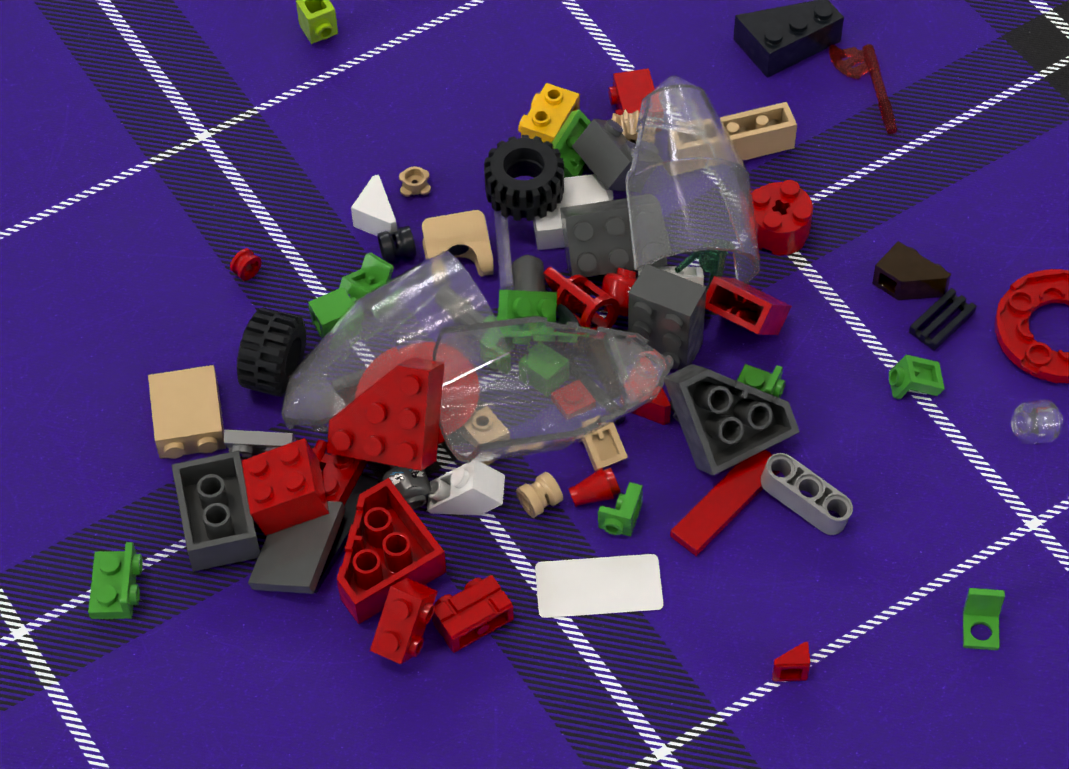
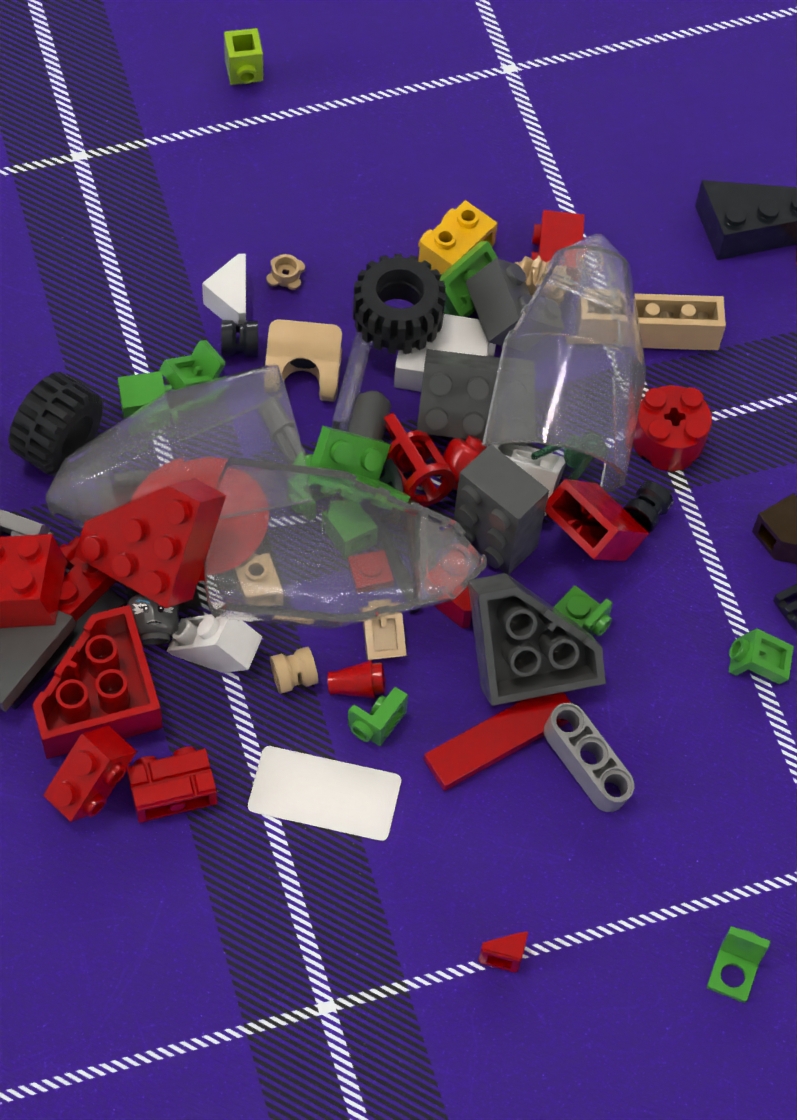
camera: 10 degrees right, 5 degrees up
(245, 264) = (69, 314): red bush -> none
(783, 282) = (649, 504): none -> black wheel

